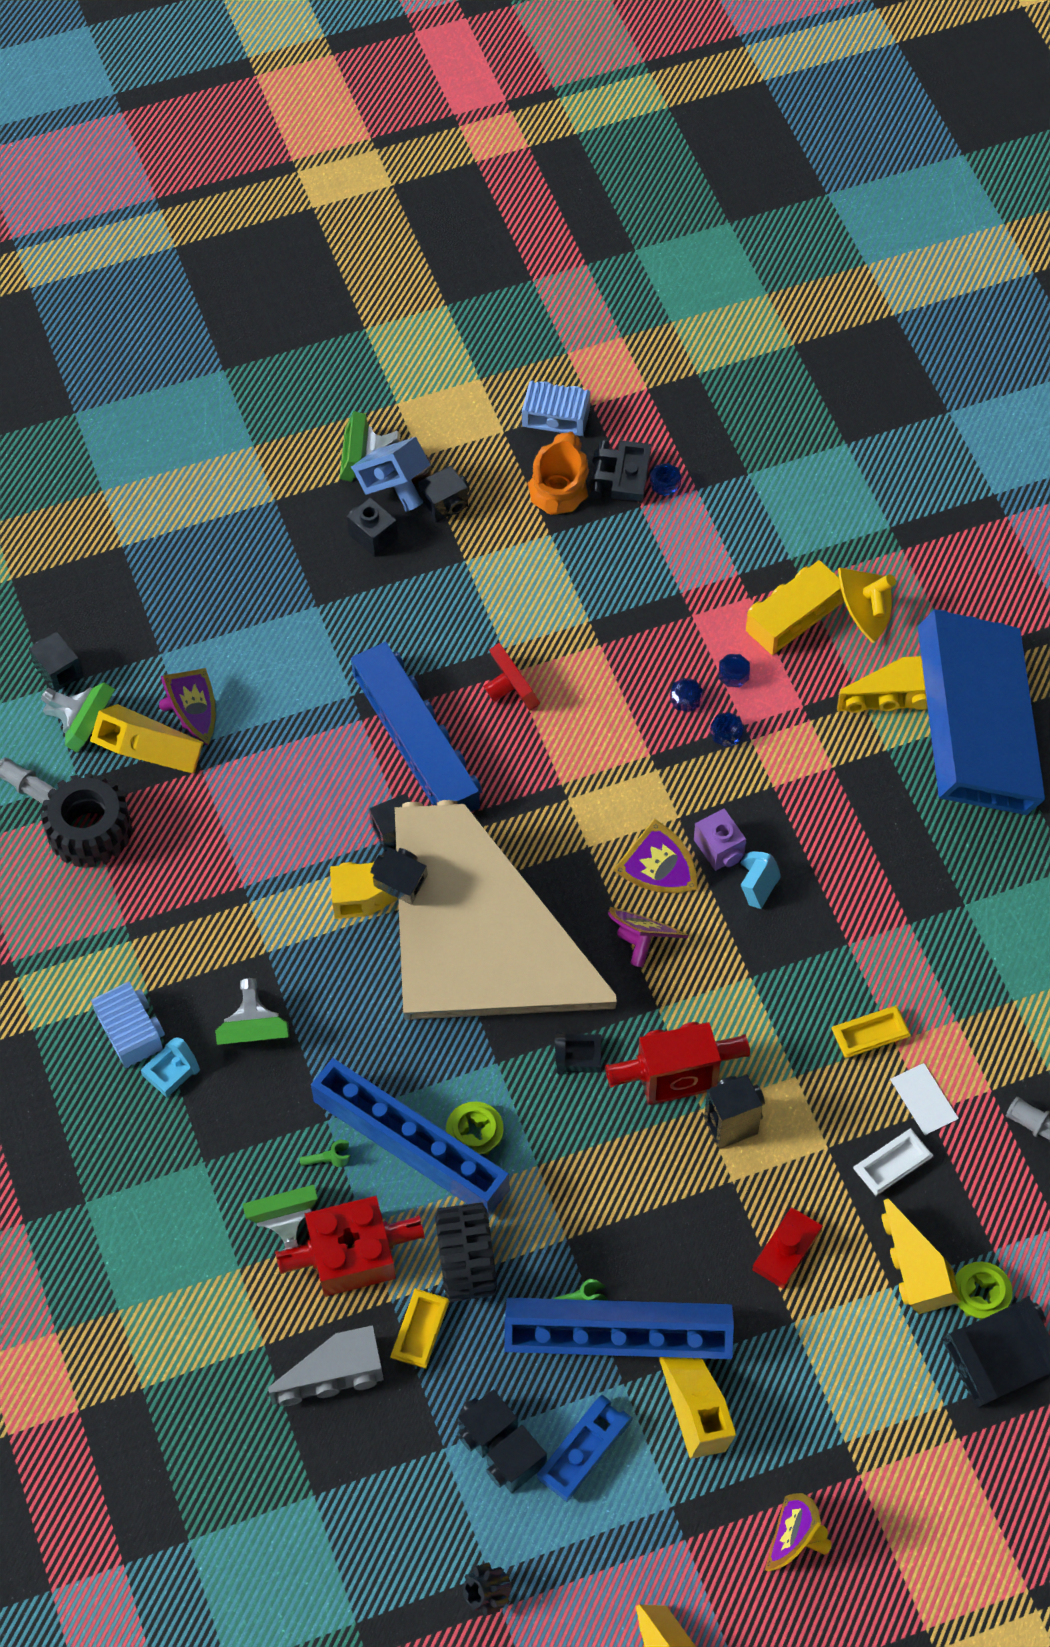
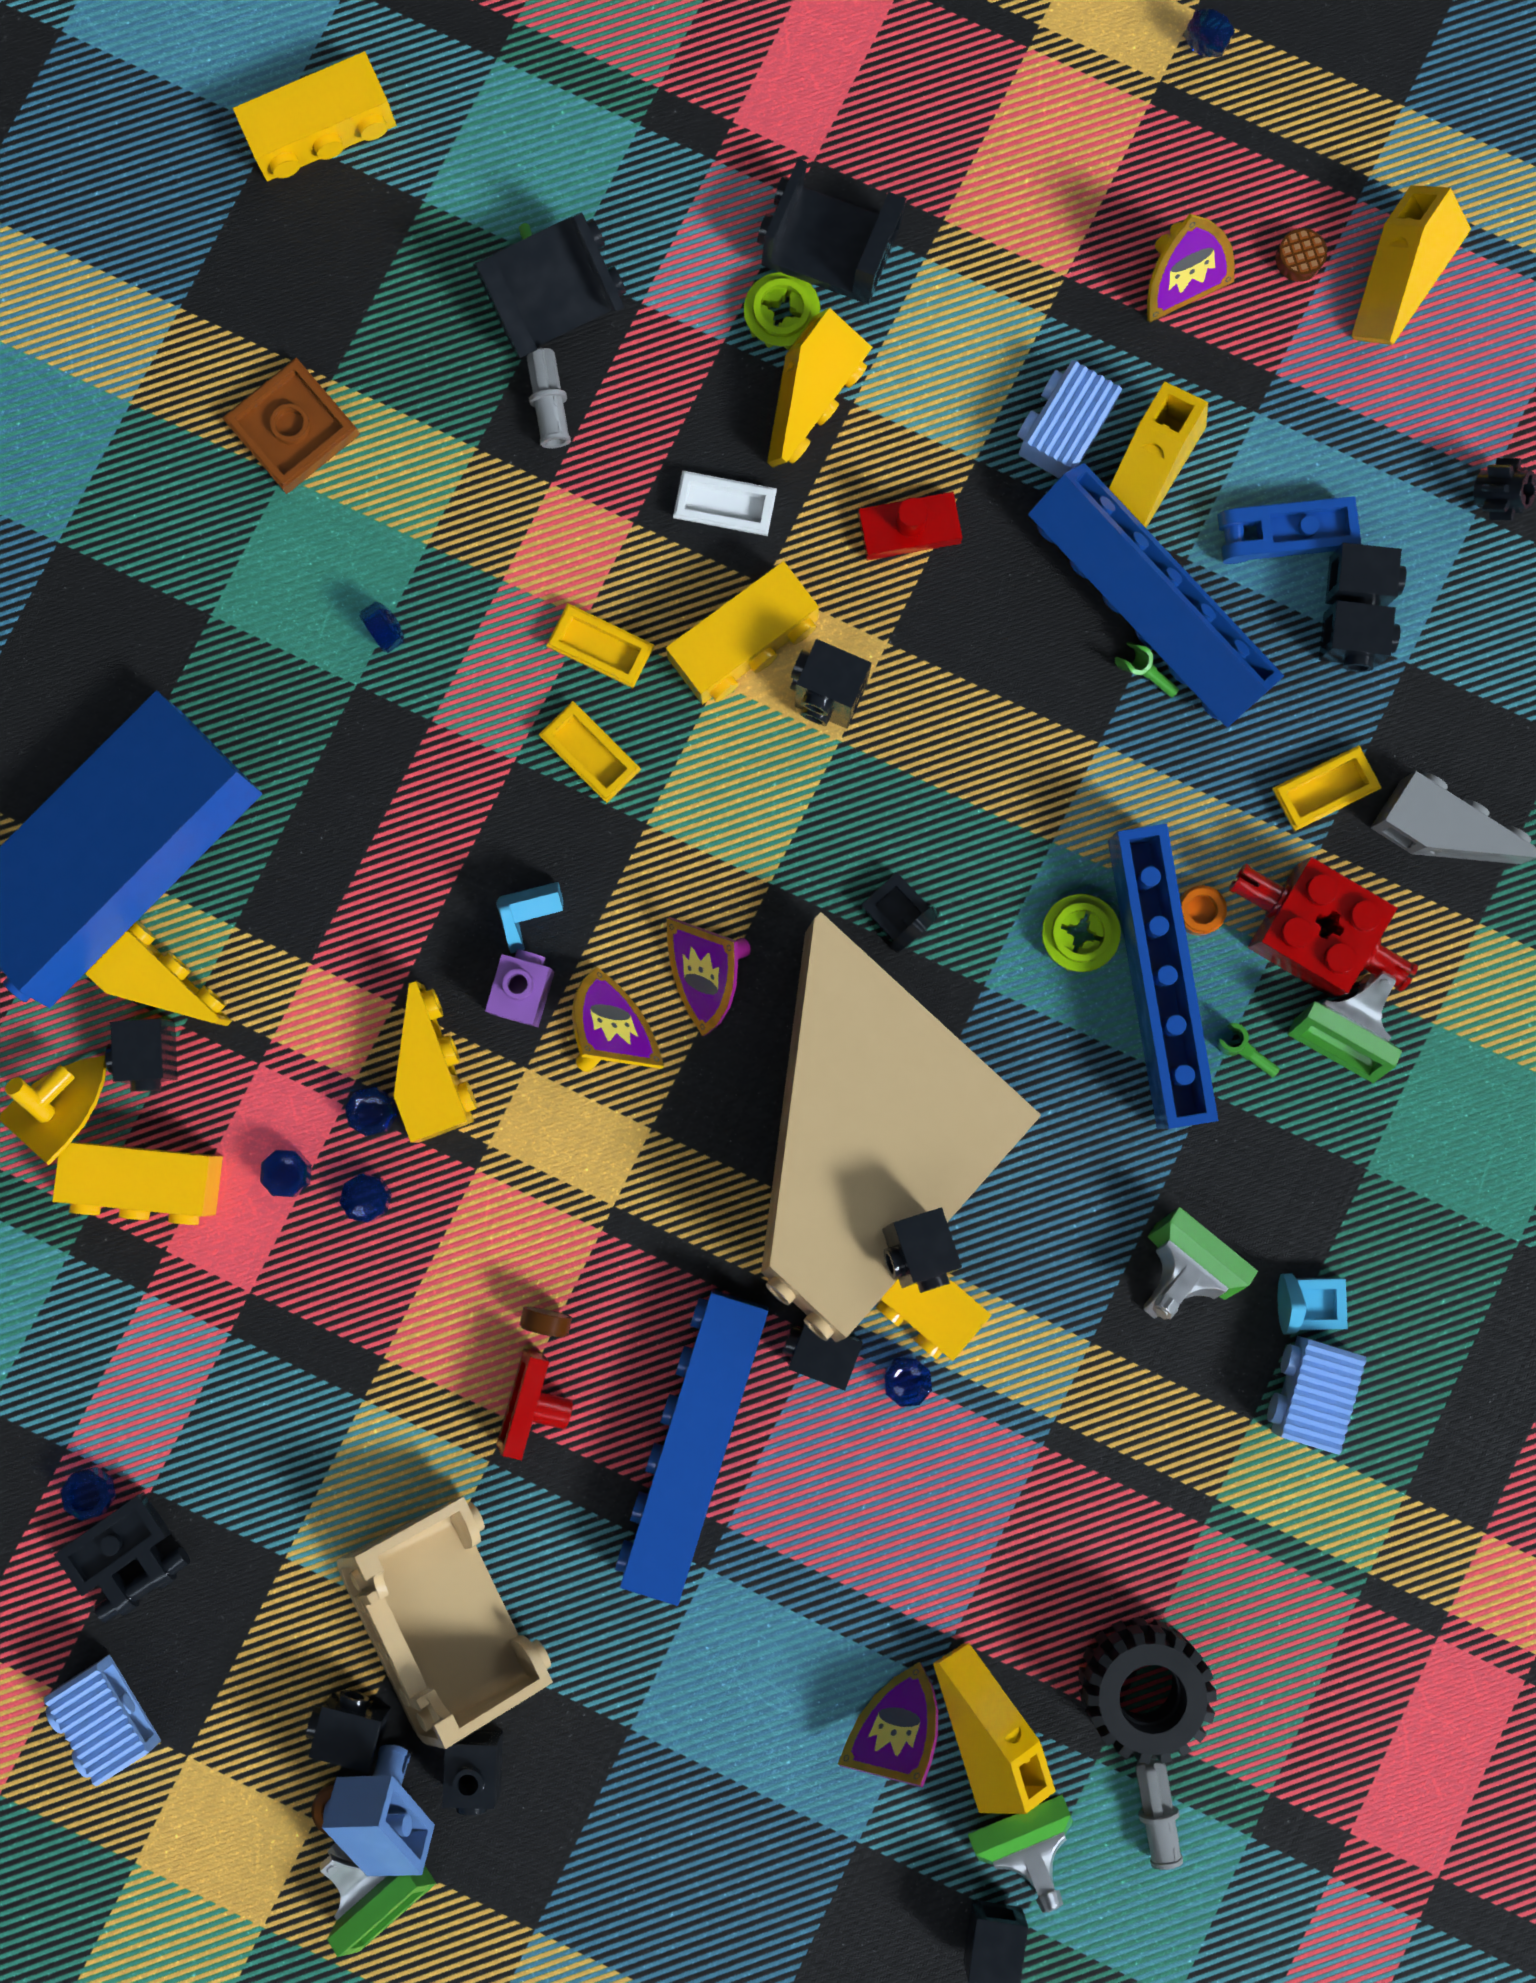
camera: 135 degrees left, 25 degrees up
(341, 848) = (907, 1381): none -> clear blue tile
(423, 1201) = (1203, 910): none -> orange tile
(449, 565) = (442, 1624): none -> tan windscreen
(466, 1252) = (1234, 798): black tyre -> none
(542, 718) = (545, 1322): none -> reddish brown tile
(559, 475) = (198, 1619): orange piece -> none
(678, 1062) = (829, 786): red brick -> none
(716, 763) = (426, 1079): none -> yellow slope
(743, 1620) = (1301, 255): none -> tile
(766, 1381) = (1069, 420): none -> light blue brick
(806, 1103) = (744, 634): none -> yellow brick
(816, 978) = (589, 751): none -> yellow tile
(857, 655) = (142, 1053): none -> black brick
(924, 1099) = (622, 538): white sticker -> none
(983, 934) = (382, 626): none -> clear blue tile

